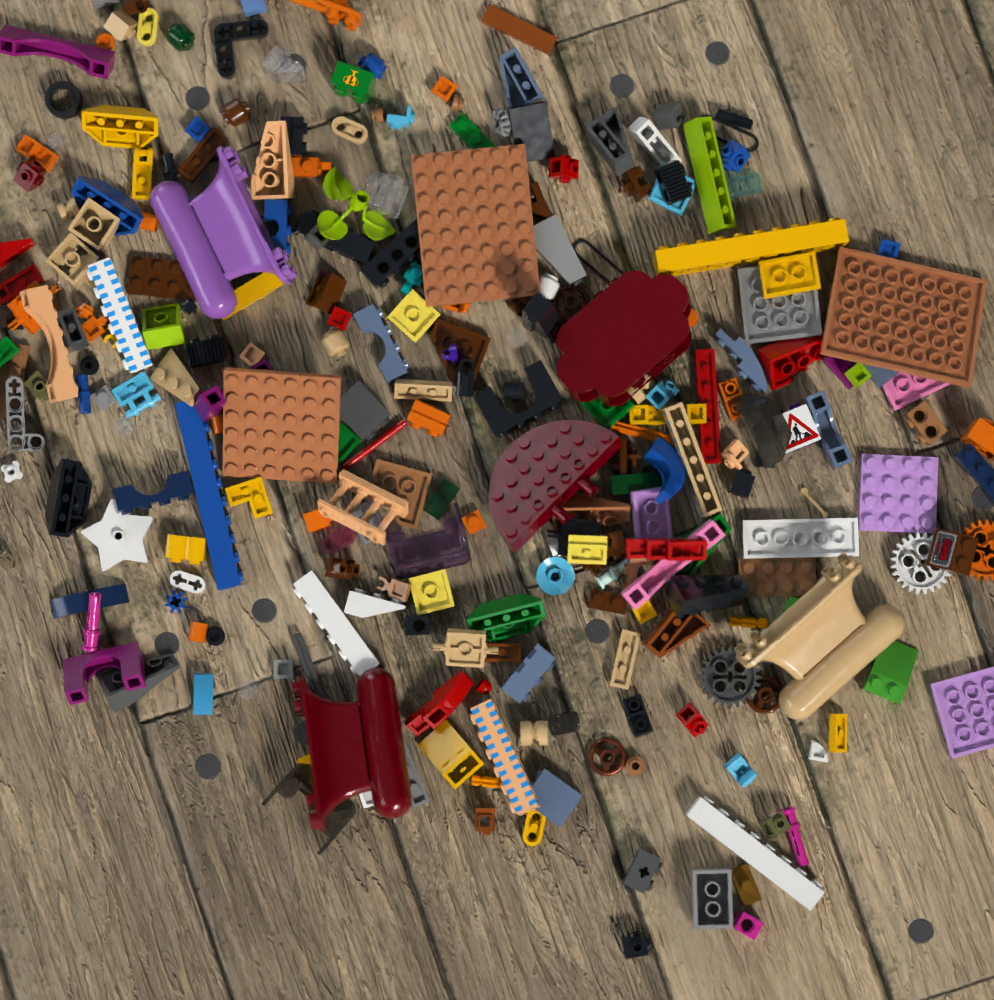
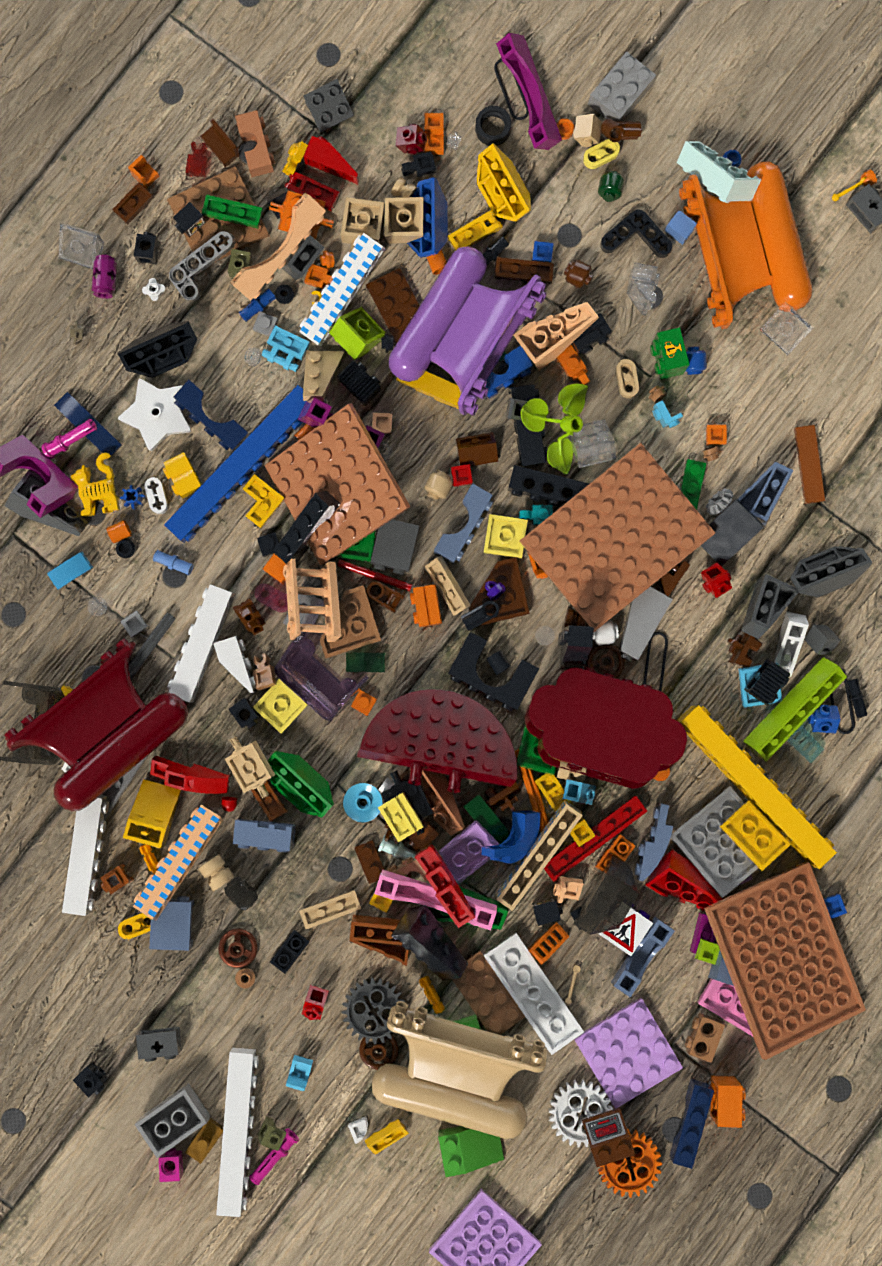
camera: 60 degrees right, 0 degrees up
(46, 73) = (505, 95): none -> black piece
(56, 179) = (422, 165): none -> black plate
(152, 626) = (97, 491): none -> yellow animal
(253, 603) = (173, 562): none -> medium blue pin
(291, 514) = (268, 544): none -> black plate
(294, 459) = (316, 512): none -> black arch
(345, 499) = (314, 582): none -> clear plate
(398, 446) = (386, 596): none -> reddish brown piece
(450, 834) = (84, 858): none -> white brick
(616, 72) = (830, 570): none -> dark grey wedge
(761, 500) = (532, 948): none -> orange slope

